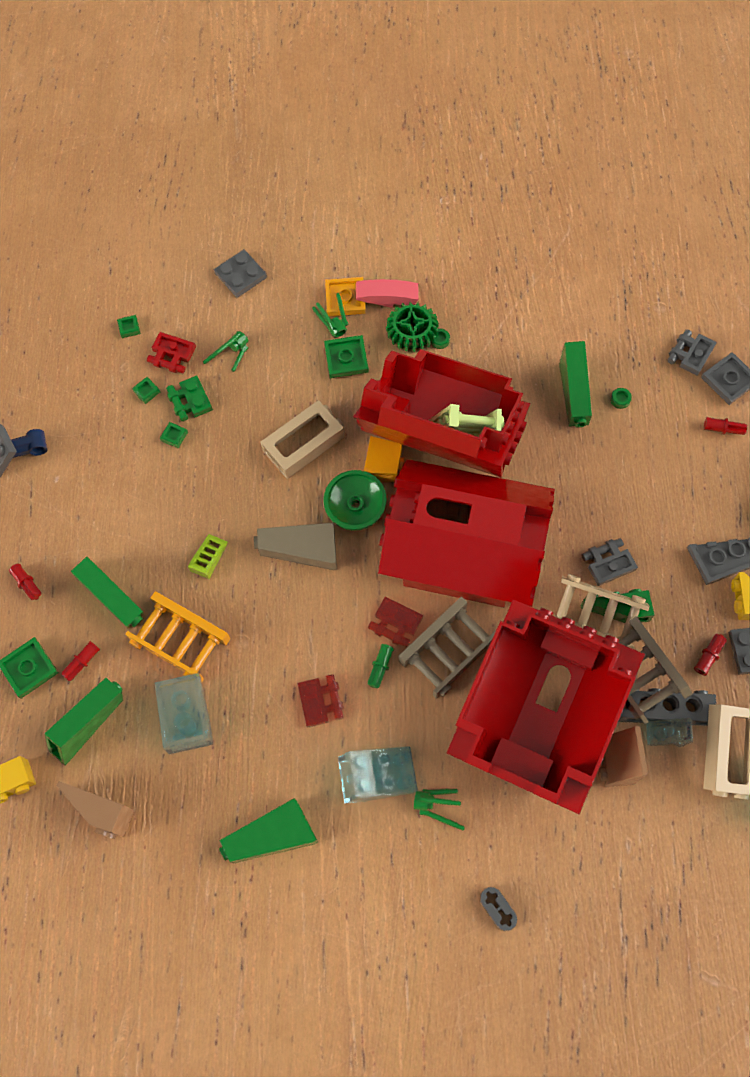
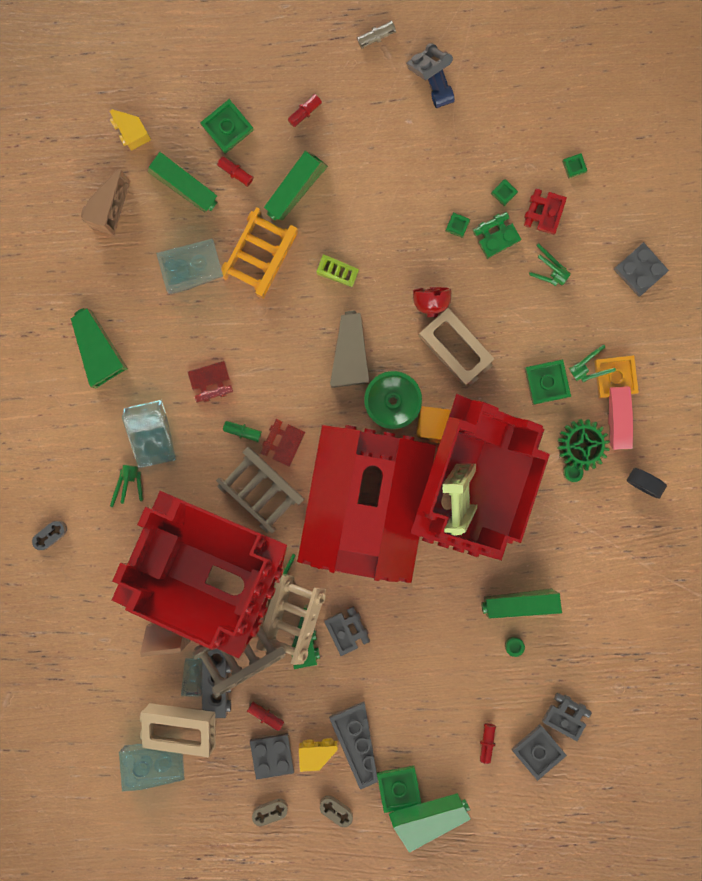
camera: 85 degrees right, 20 degrees up
(251, 458) = (432, 300): none -> red cylinder
(453, 271) = (646, 483): none -> black tyre

